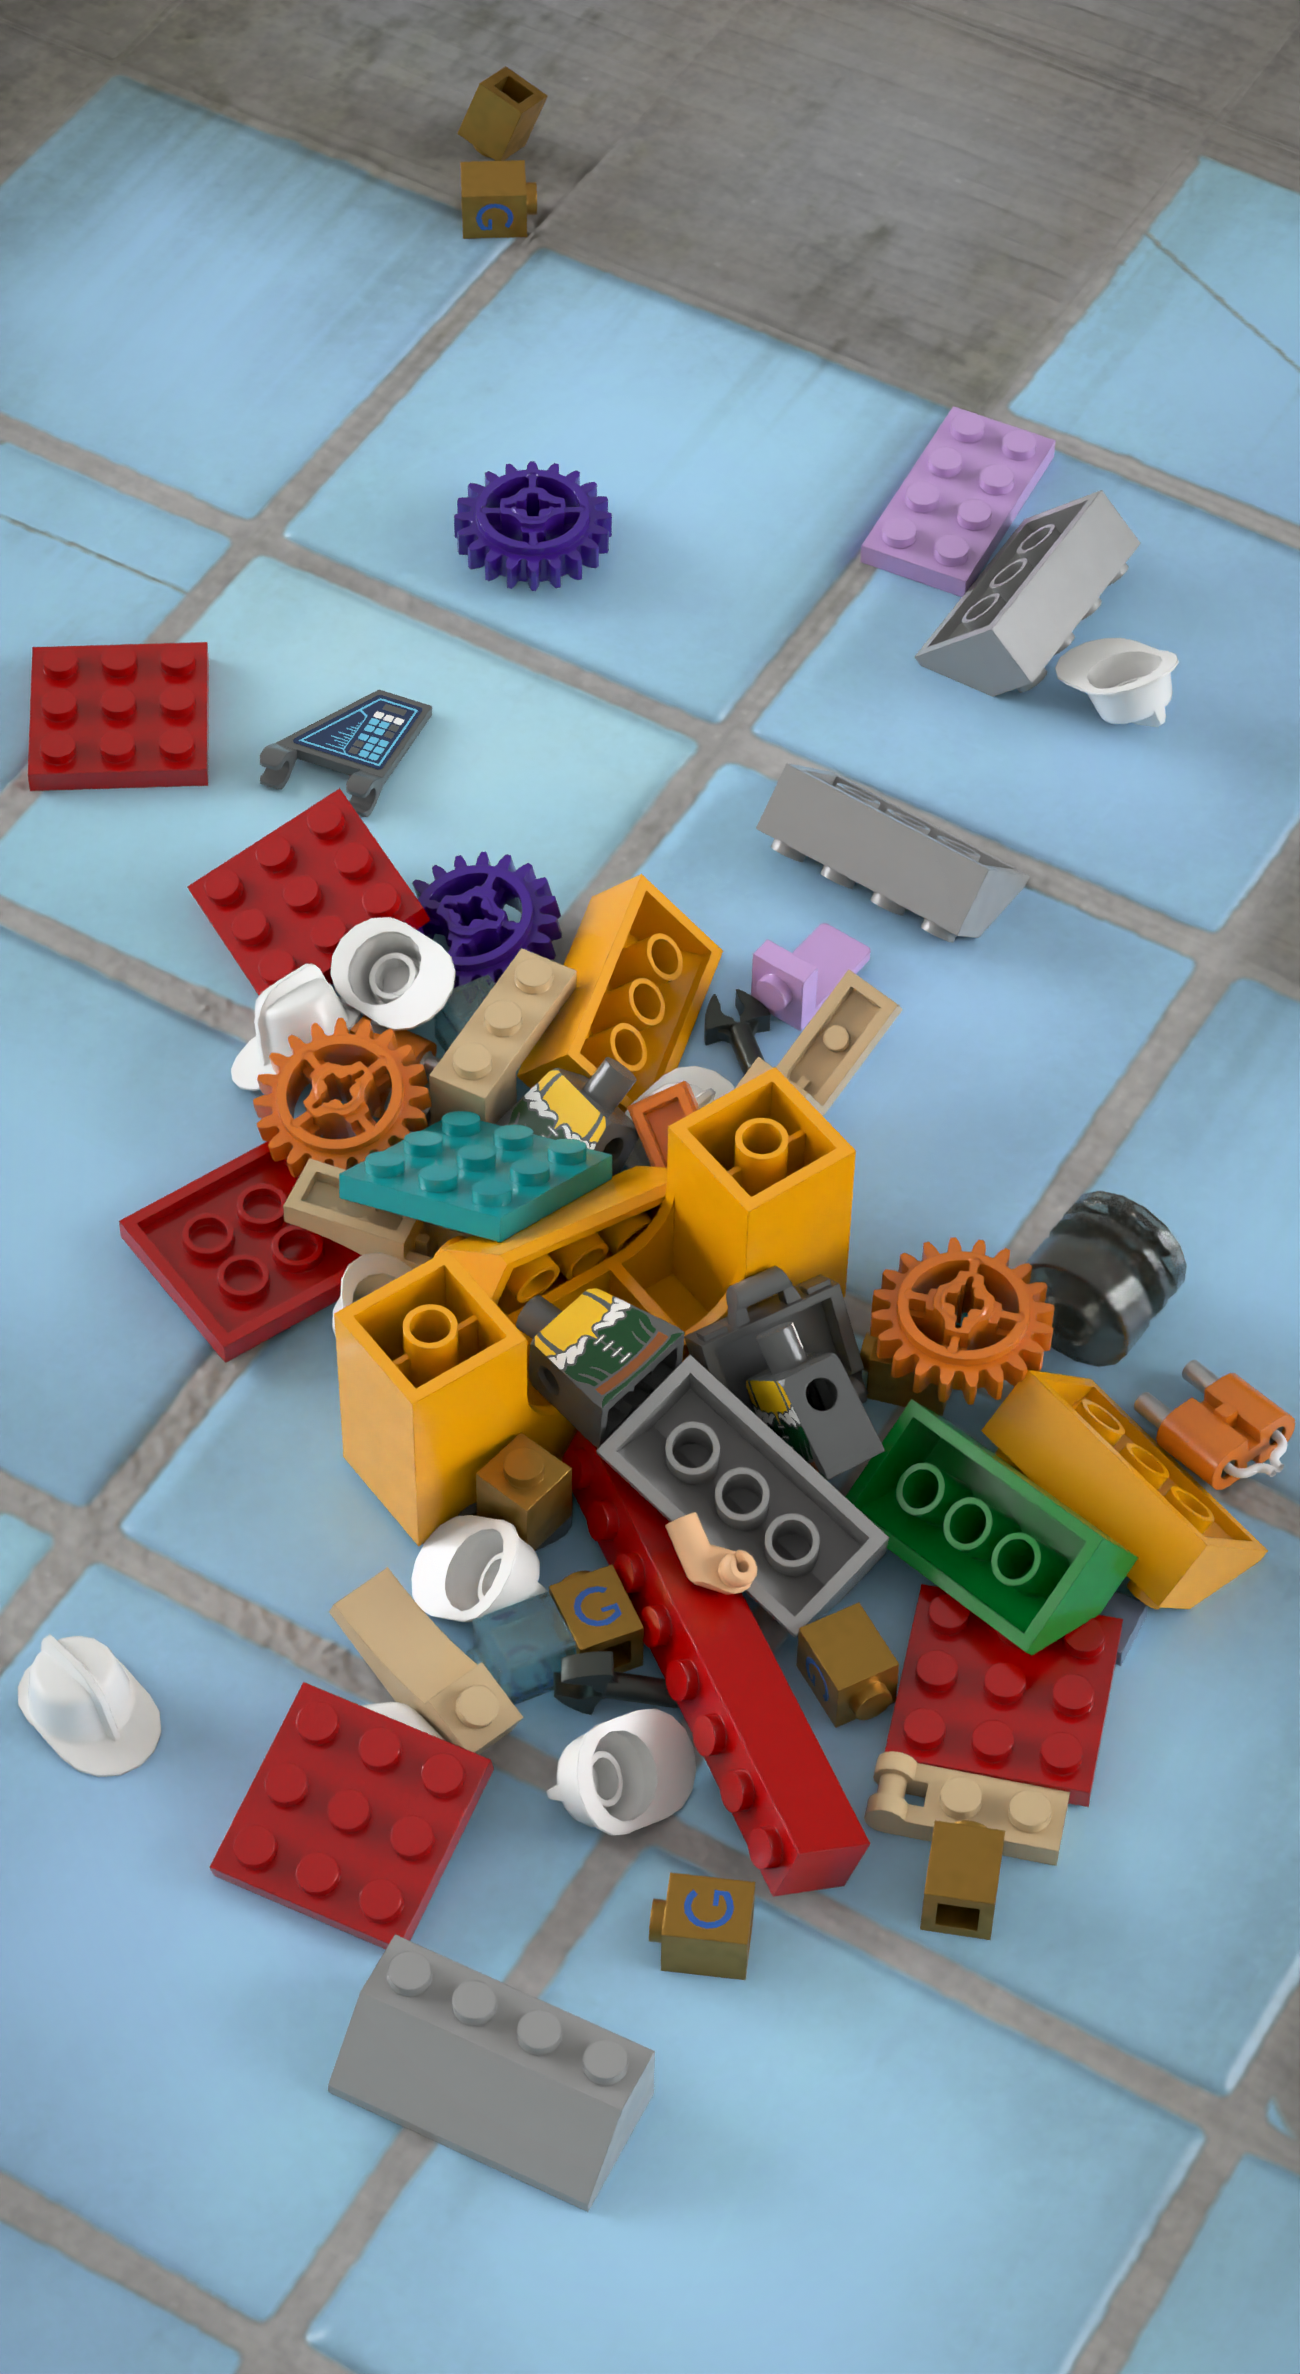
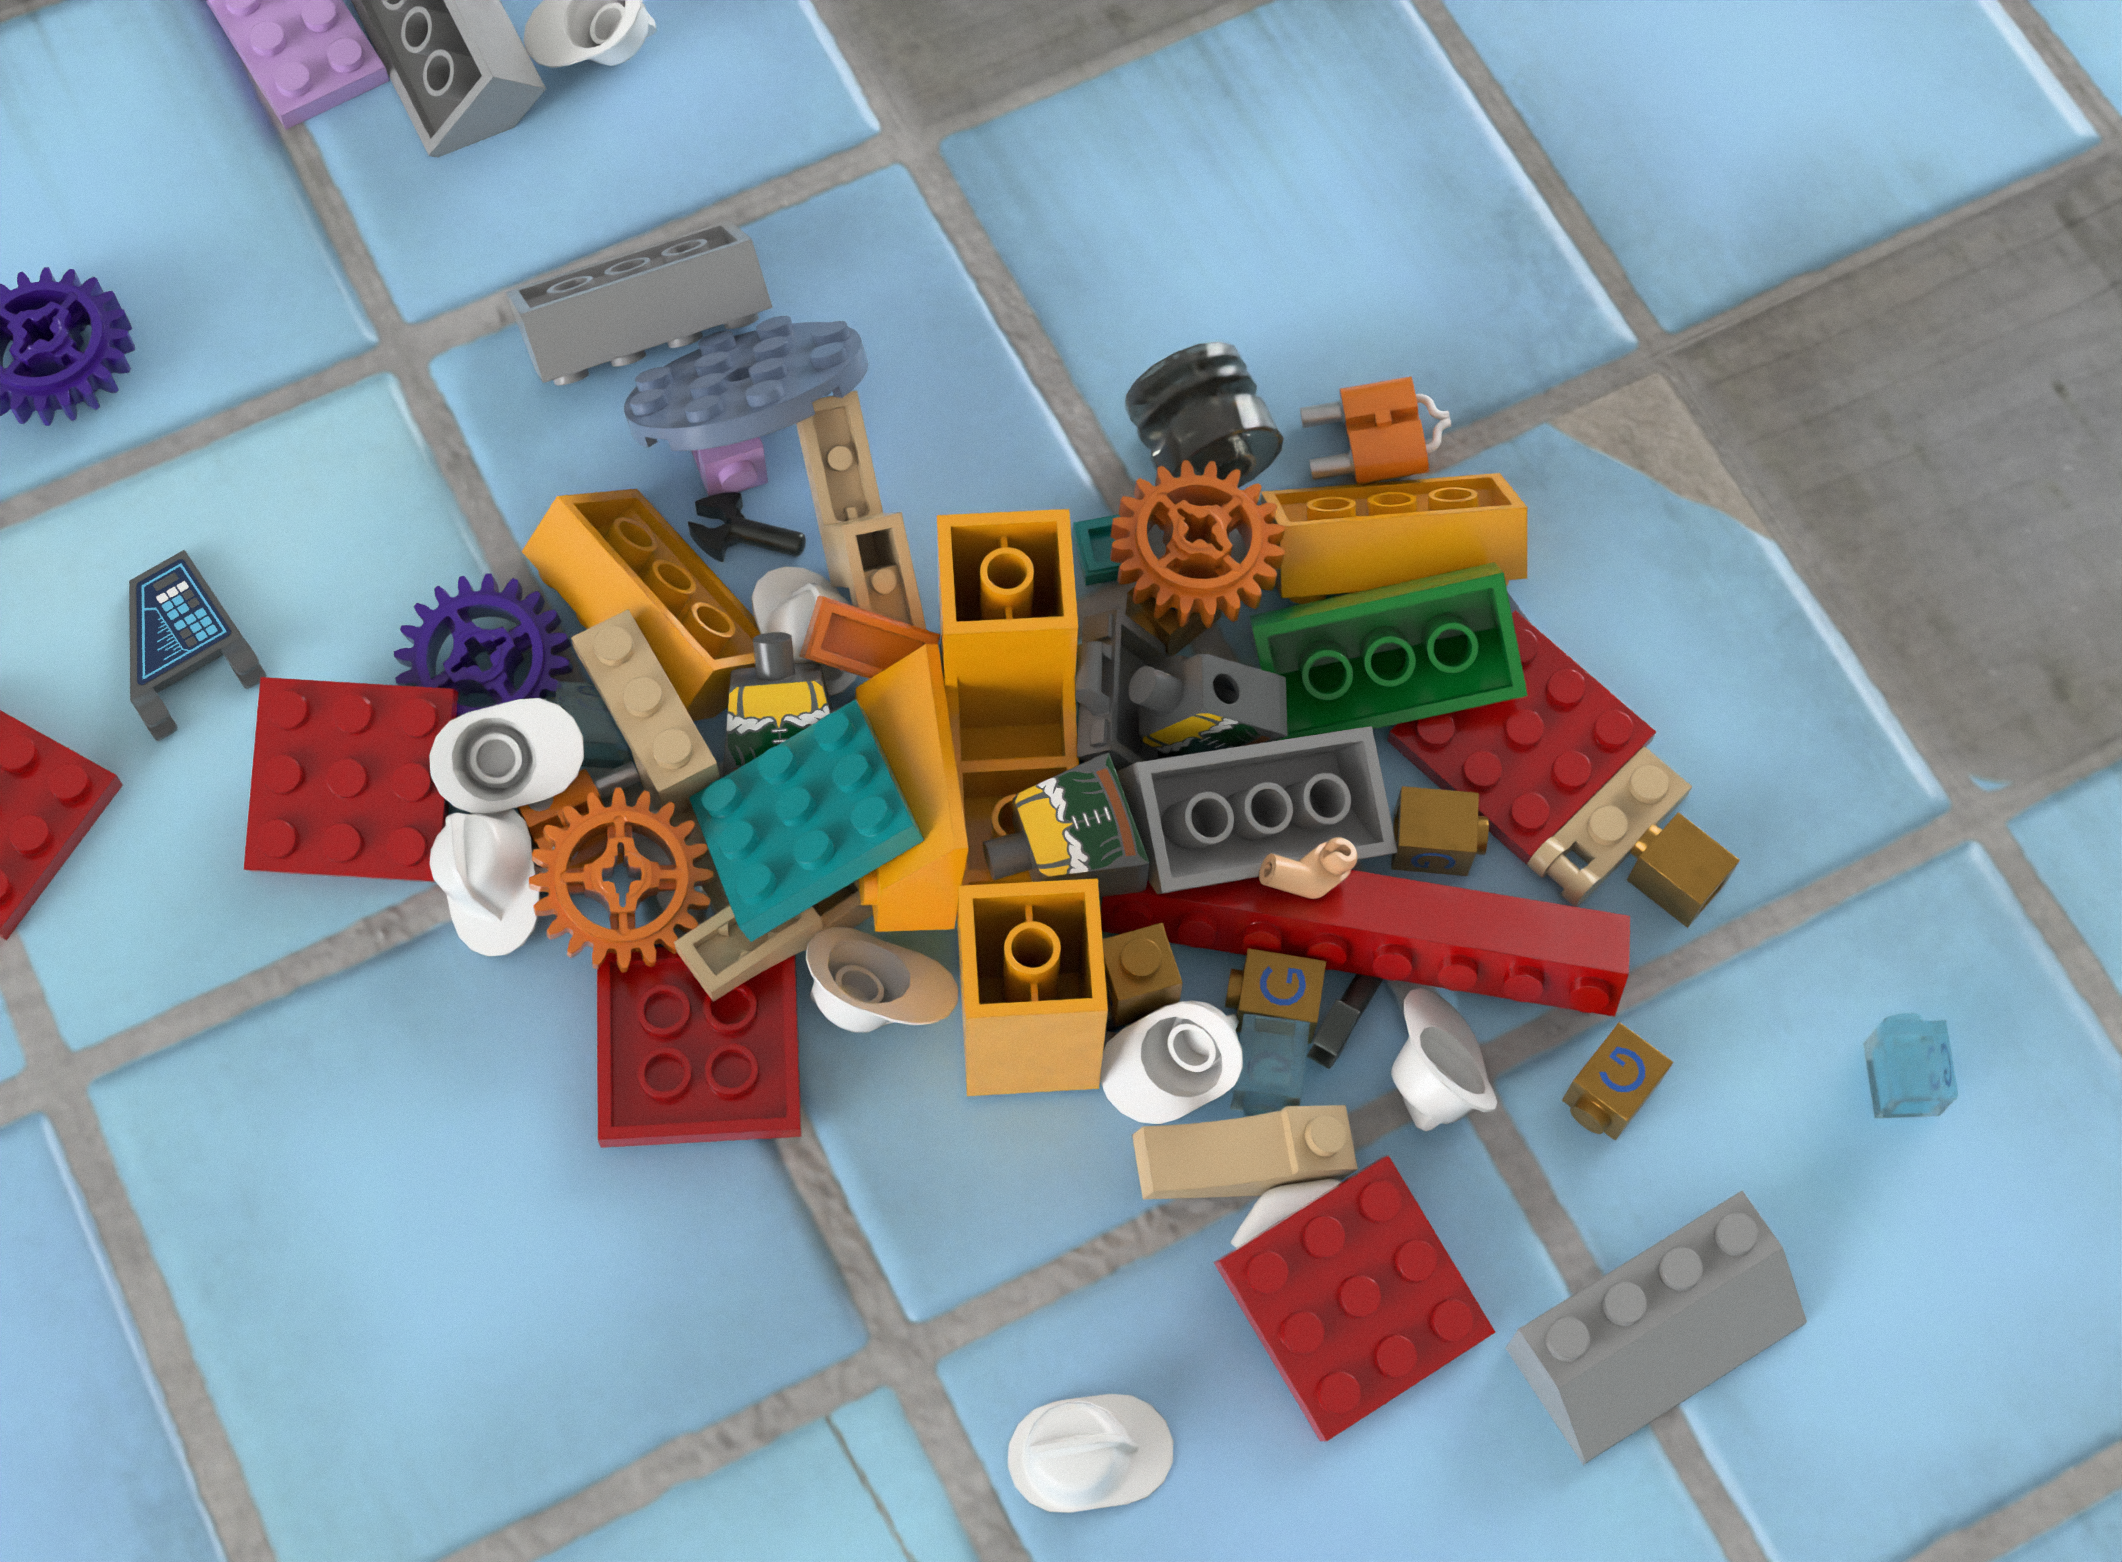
camera: 60 degrees left, 15 degrees up
(839, 932) = (745, 384): none -> sand blue plate
(902, 2164) = (1910, 1067): none -> clear light blue brick

